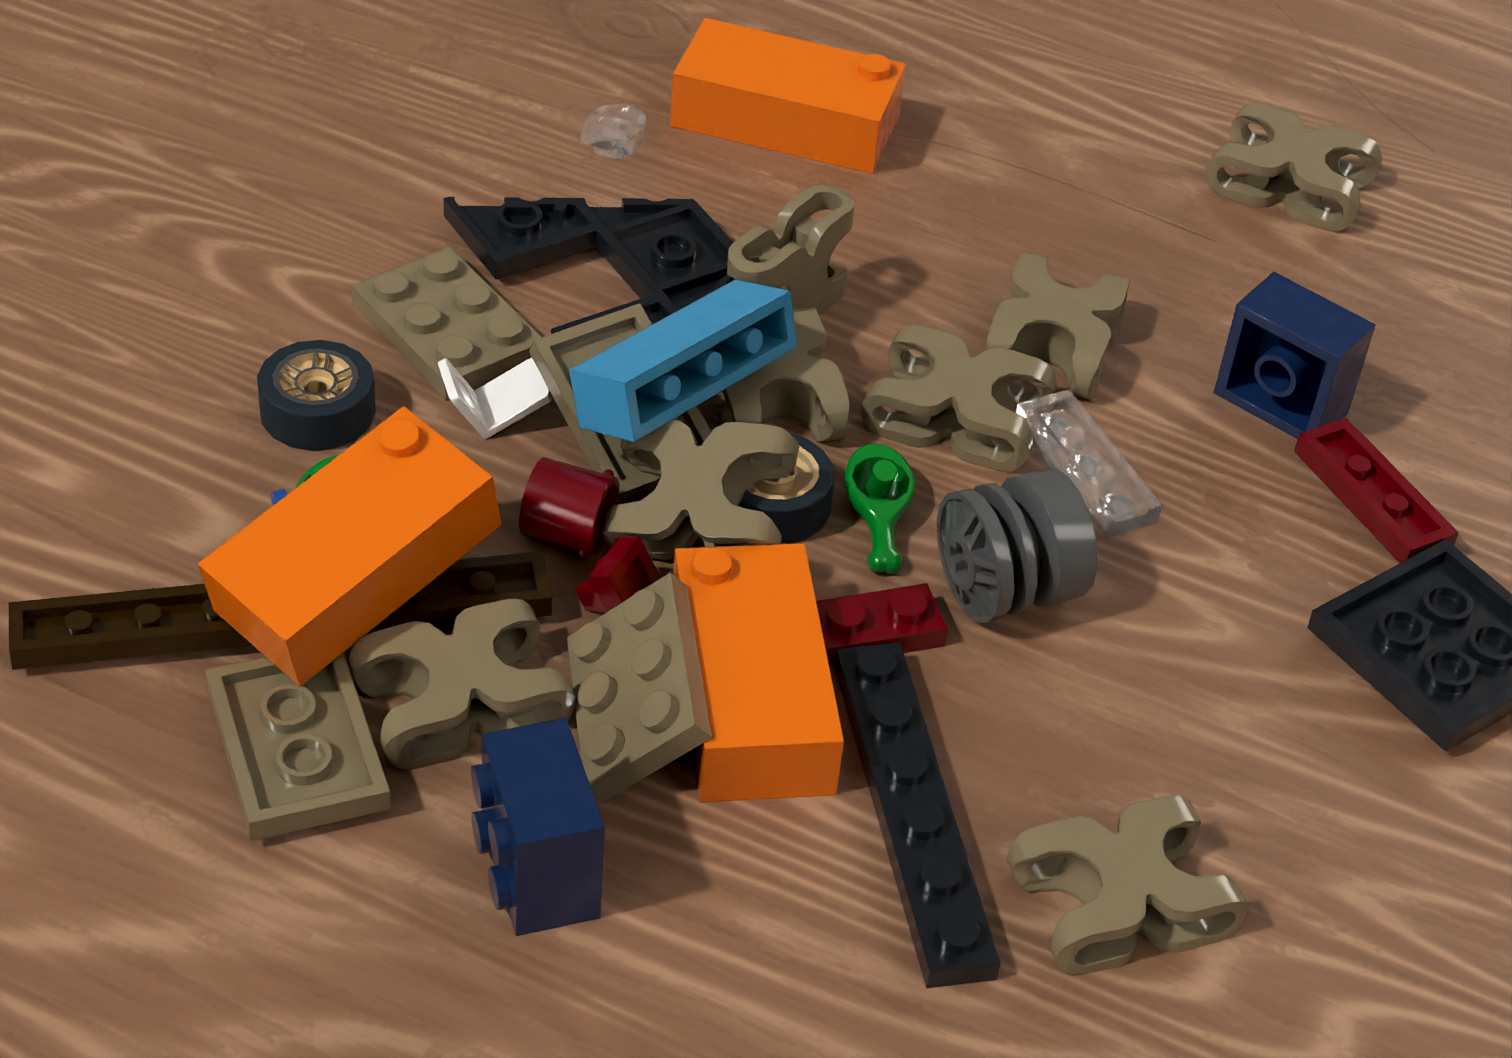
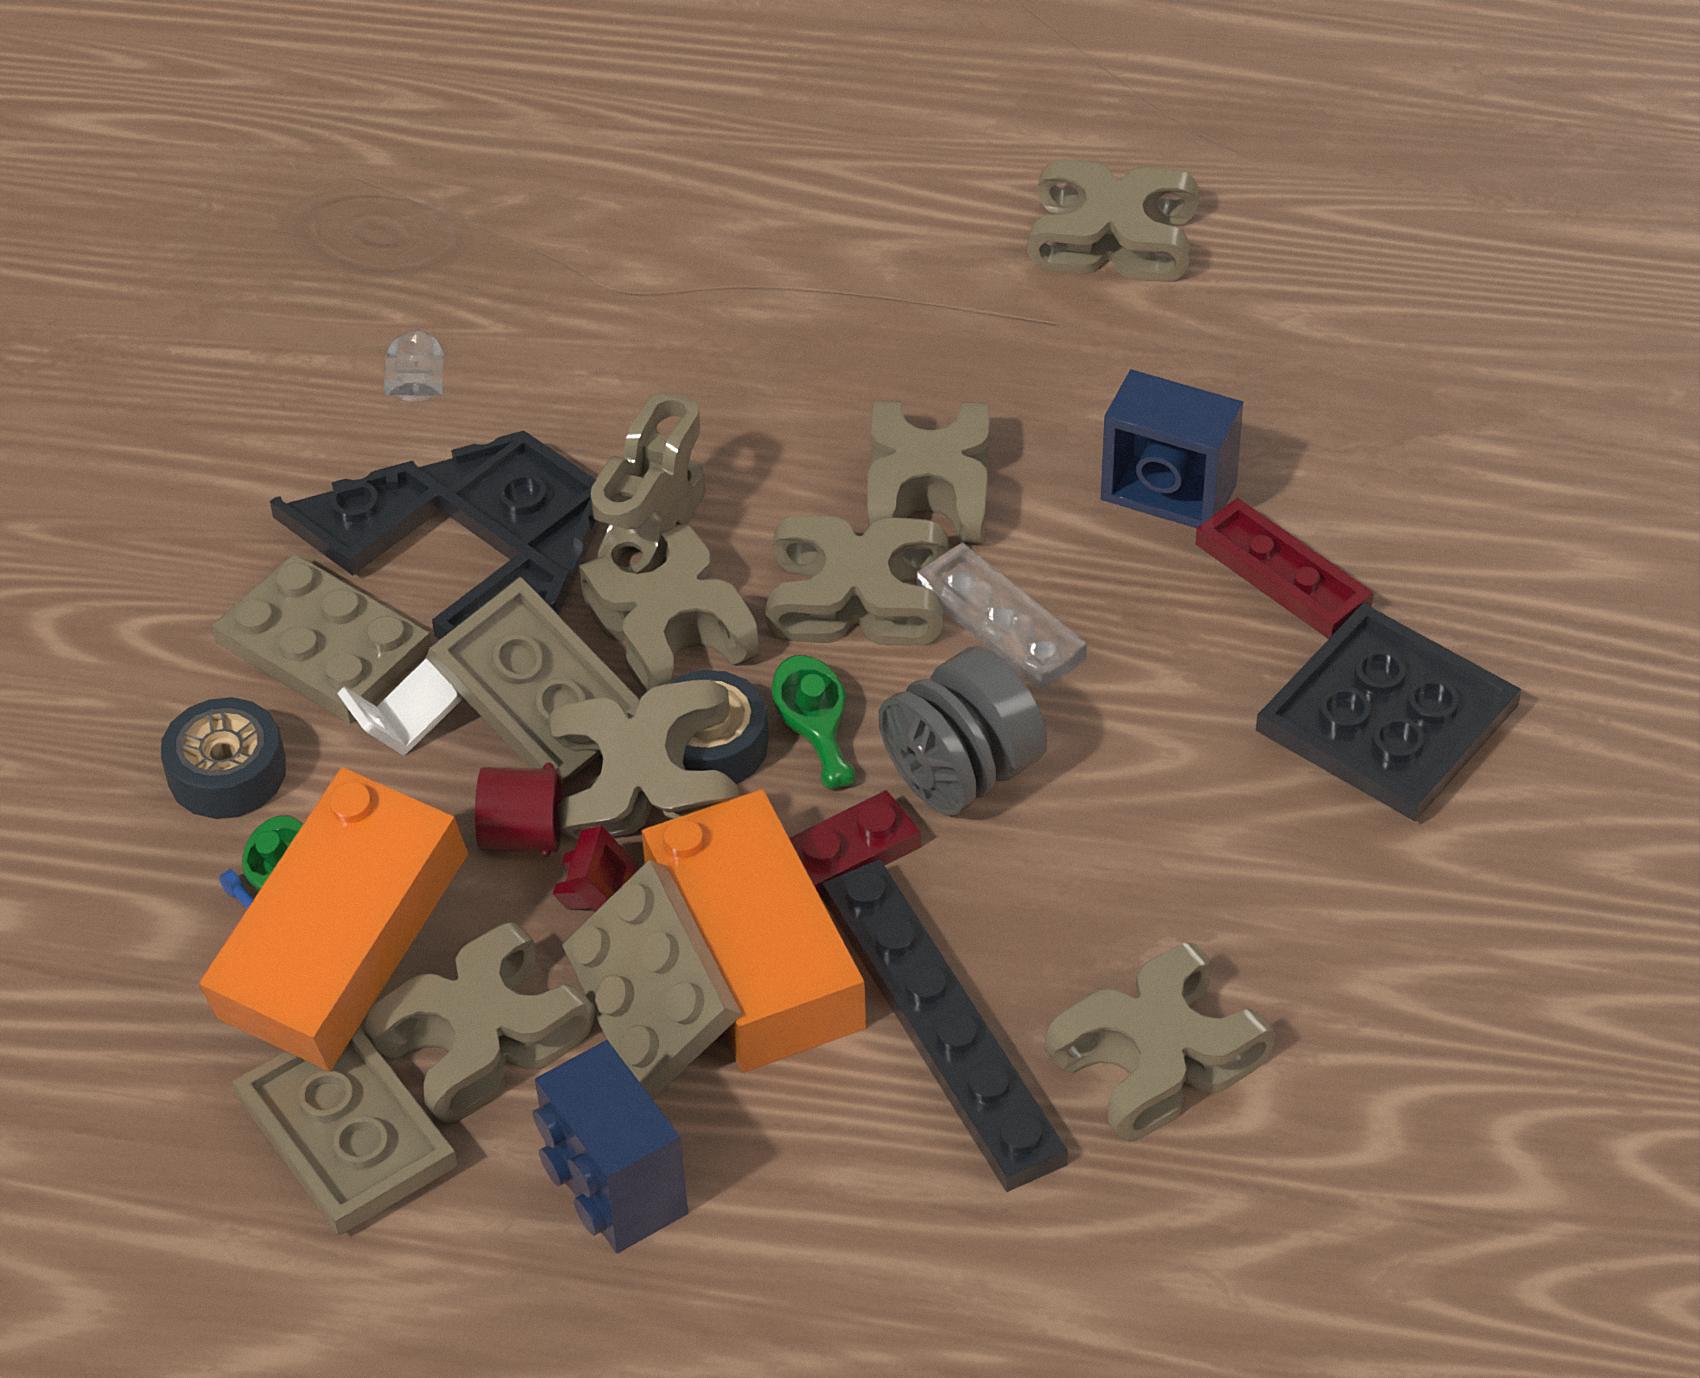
camera: 10 degrees left, 5 degrees up
(184, 620) = (190, 1035): dark brown plate -> none
(683, 359) = (586, 629): dark azure brick -> none
(787, 95) = (578, 280): orange brick -> none

